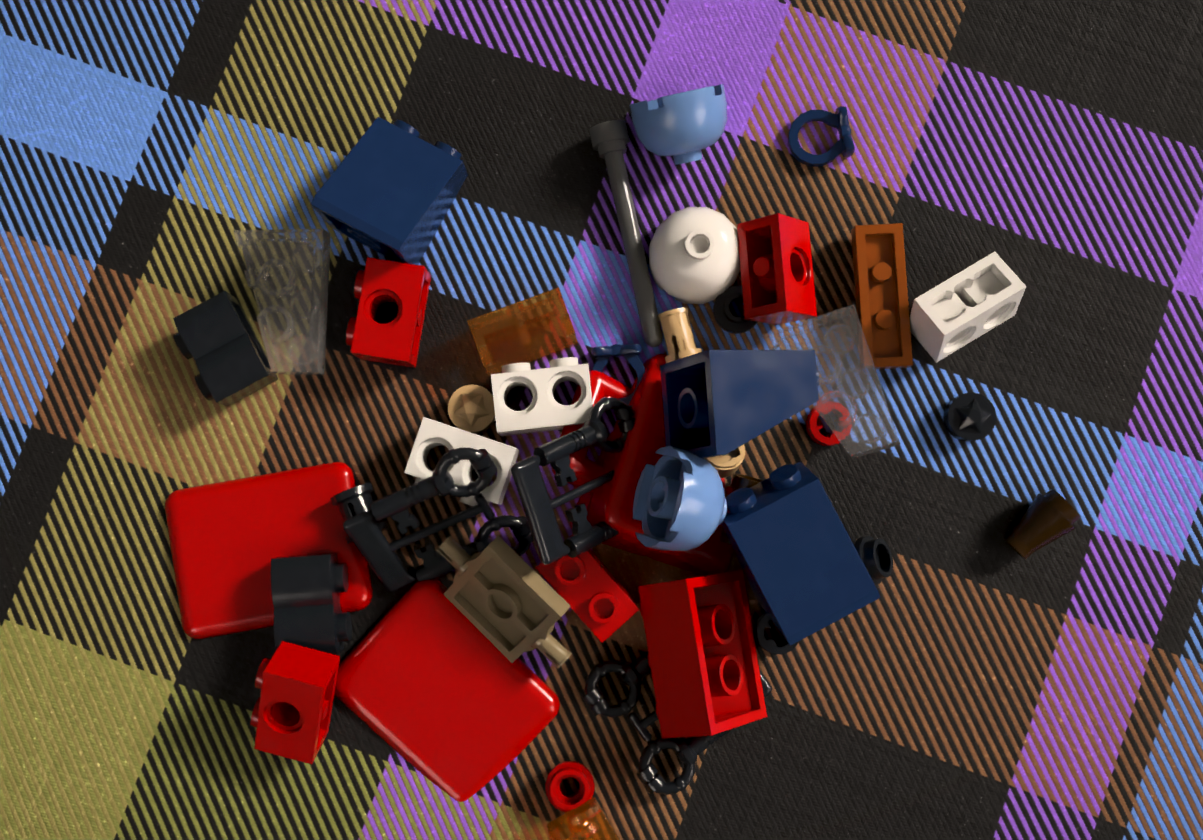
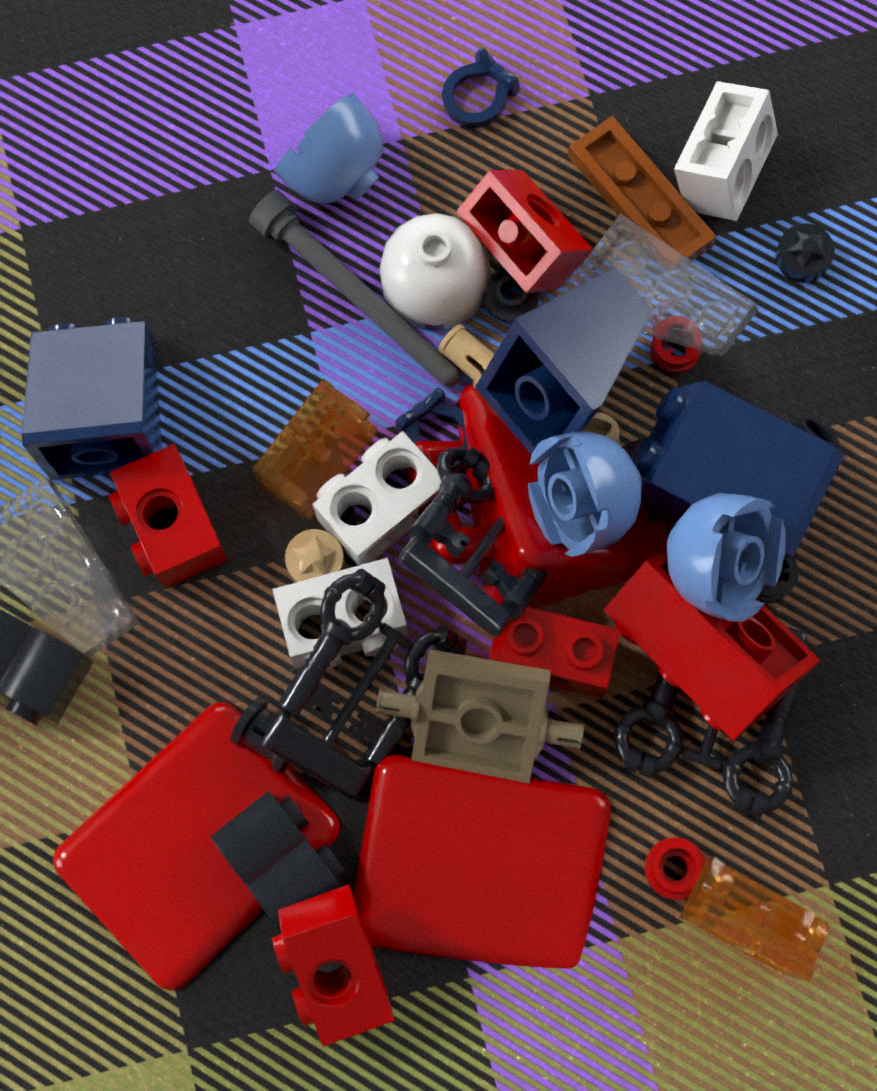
camera: 30 degrees left, 10 degrees down
(739, 615) = (726, 554): none -> medium blue cylinder

